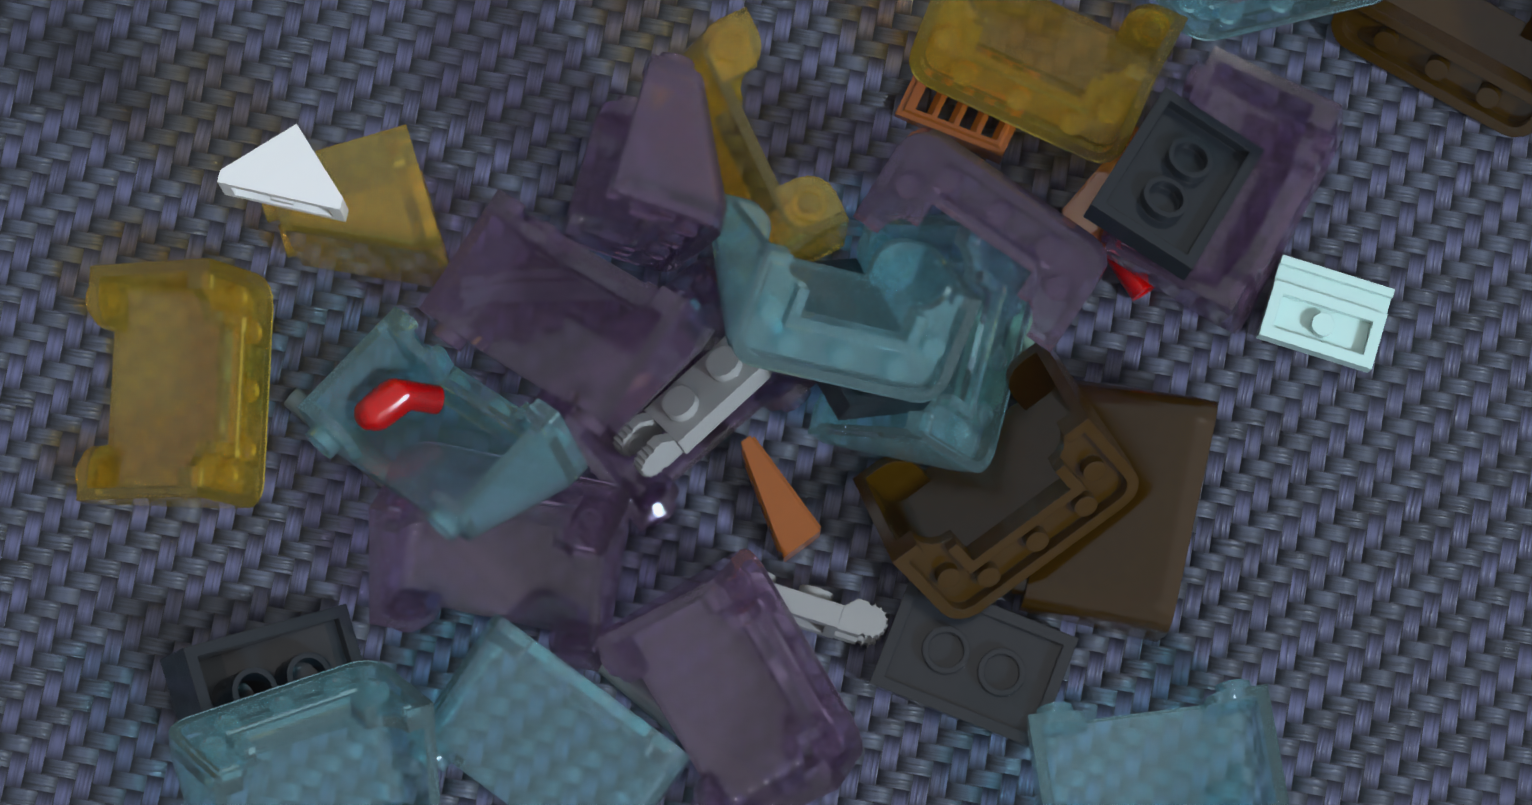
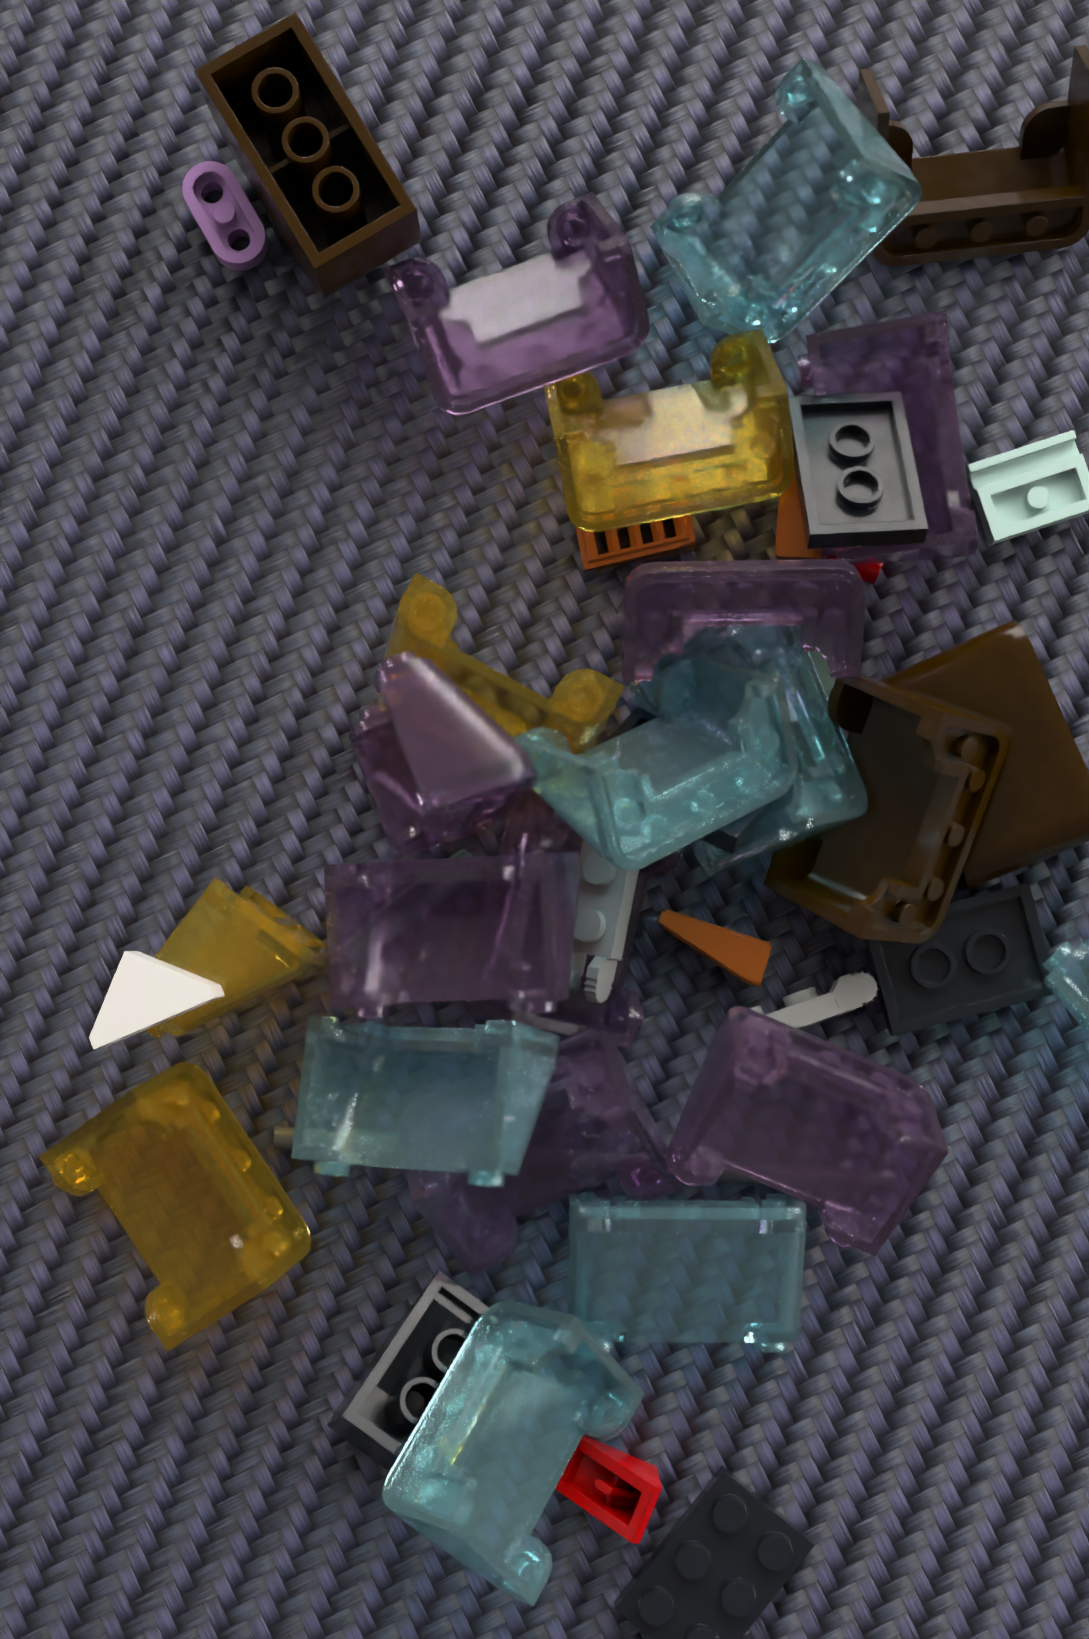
camera: 35 degrees left, 5 degrees up
(395, 399) = (363, 1090): red arm -> none

